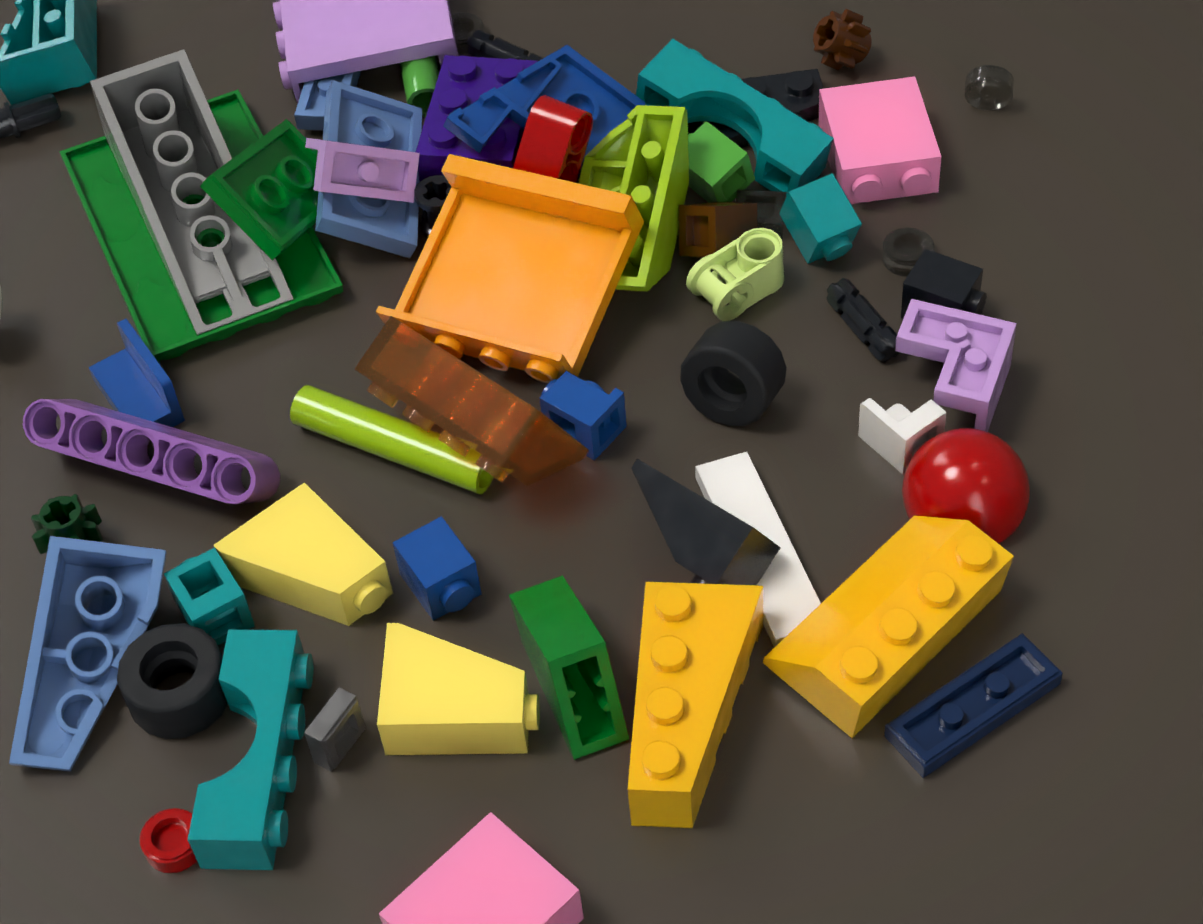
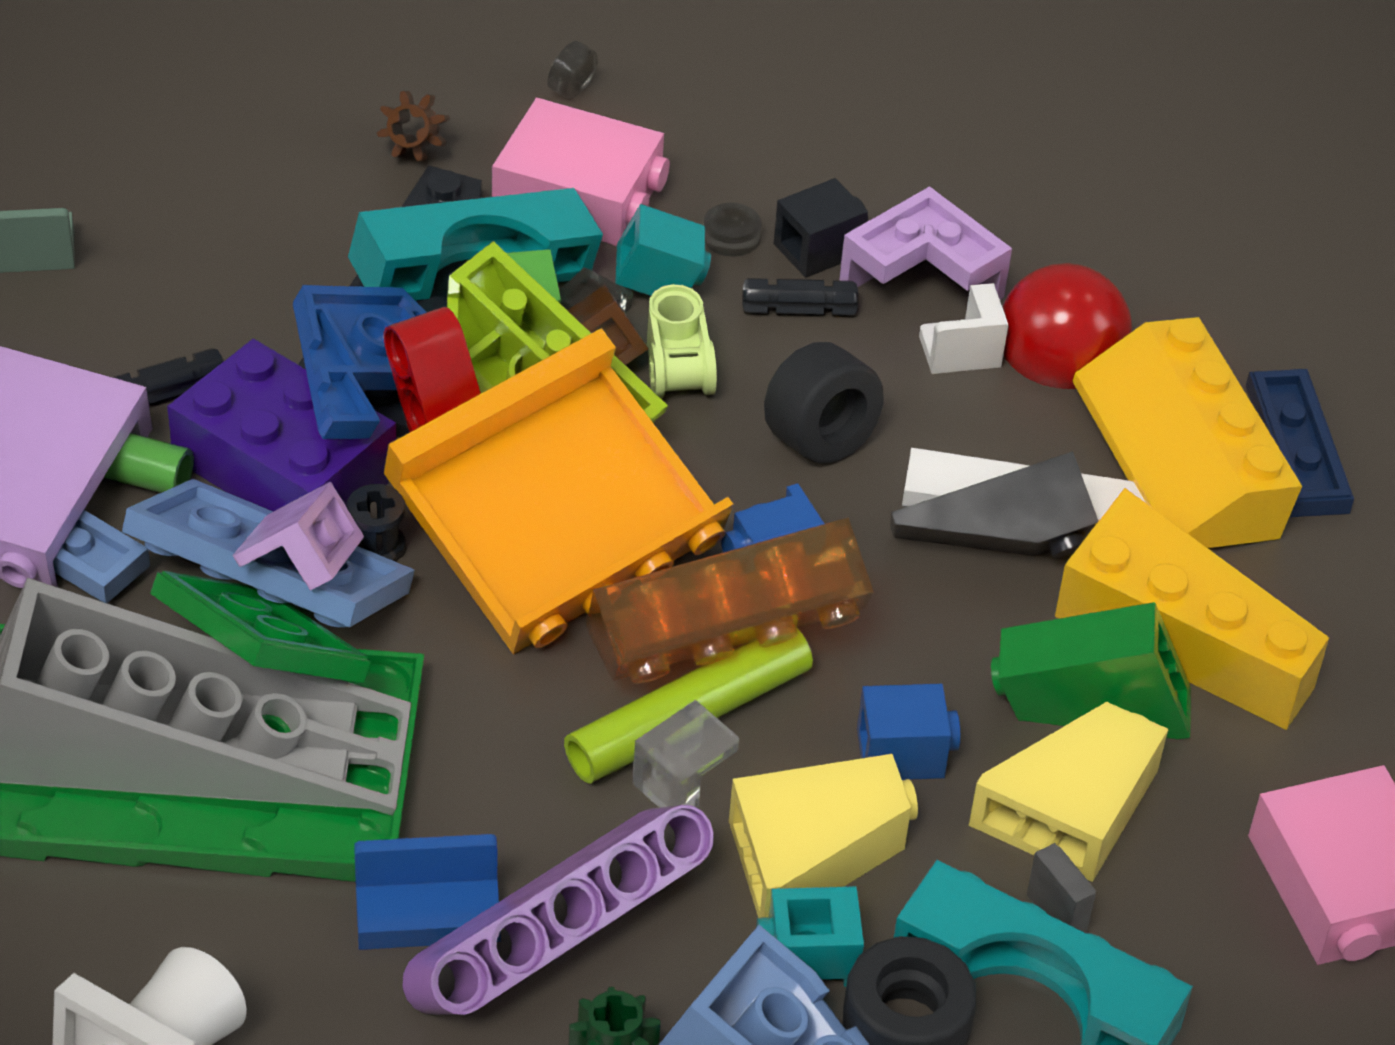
camera: 70 degrees left, 5 degrees down
(327, 448) = (678, 753): none -> clear panel

